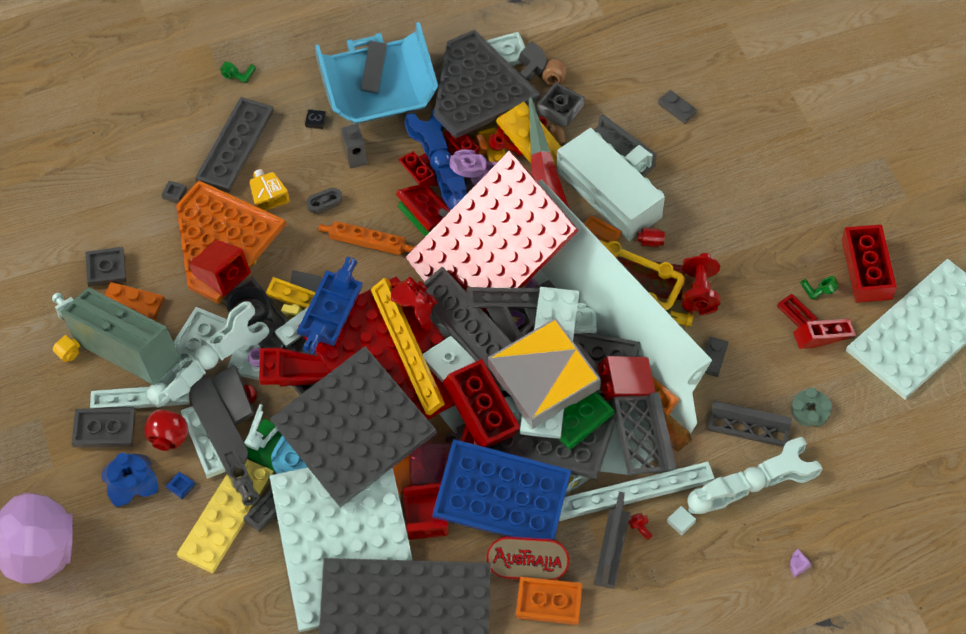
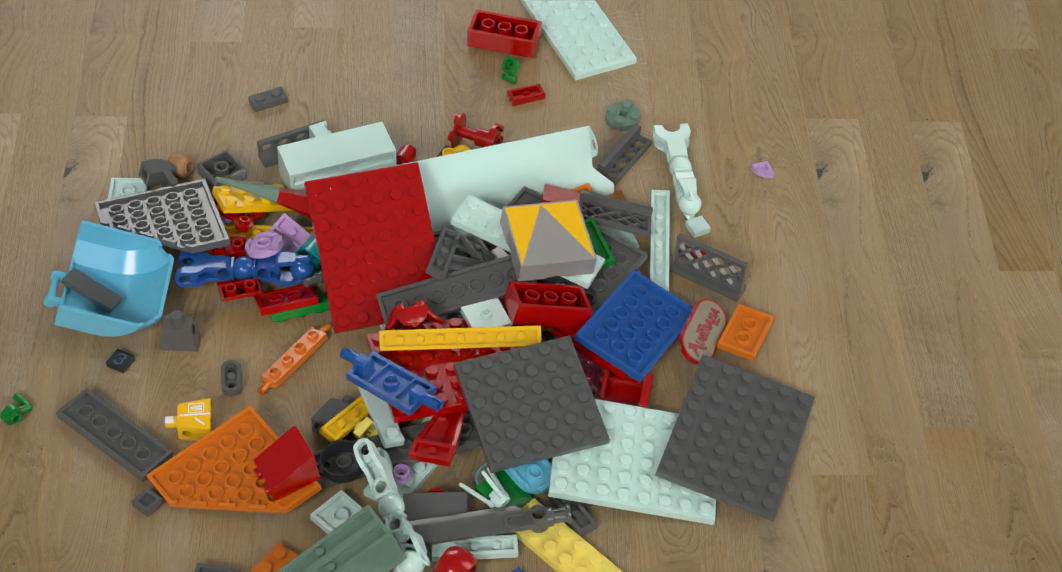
camera: 75 degrees left, 10 degrees down
(824, 332) = (557, 85): red slope -> none

